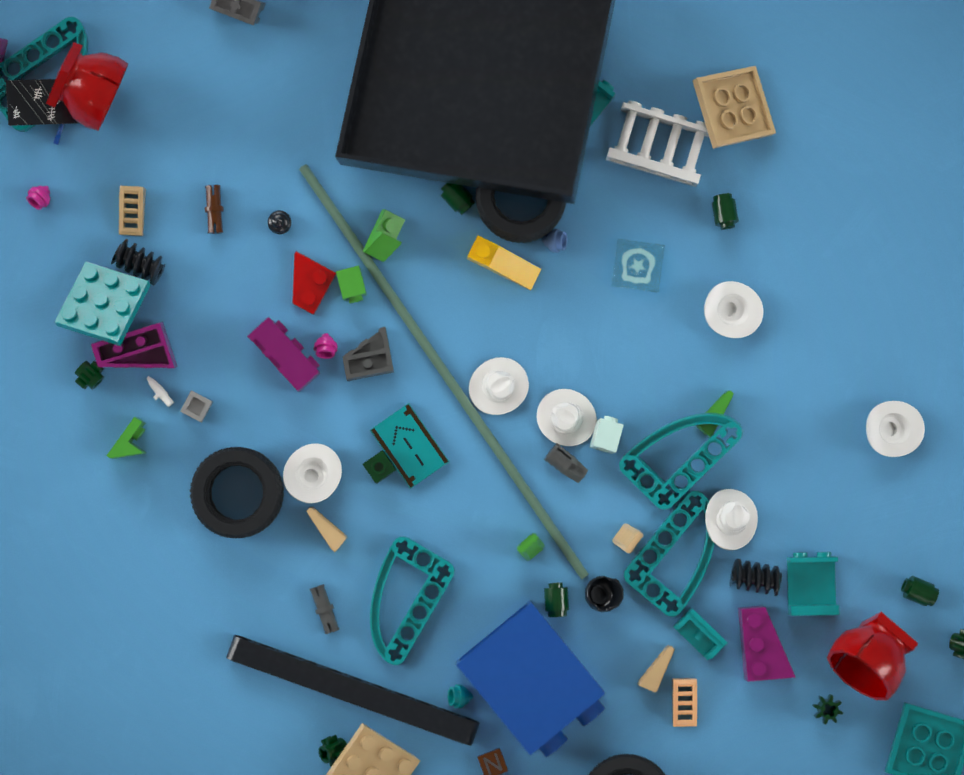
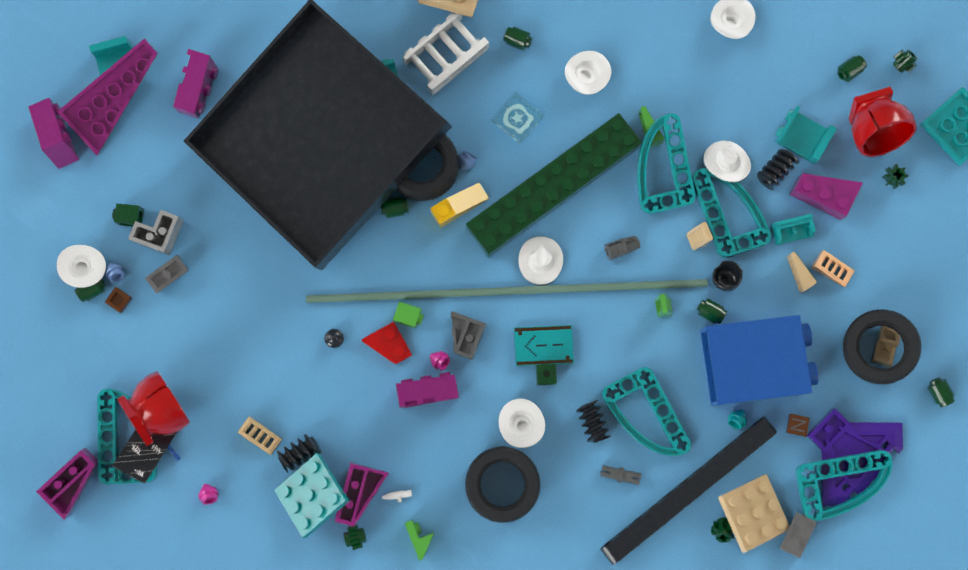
camera: 55 degrees left, 5 degrees down
(196, 406) = (424, 475): light grey plate -> none
(214, 209) = (296, 377): reddish brown pin -> none
(331, 534) = (569, 437): tan slope -> none
(360, 547) = (592, 422): none -> black piece
(383, 237) = (390, 273): bright green slope -> none
(566, 417) = (590, 228): white hat -> none
(587, 349) = (553, 185): none -> dark green brick
(606, 435) = (620, 207): light aqua brick -> none

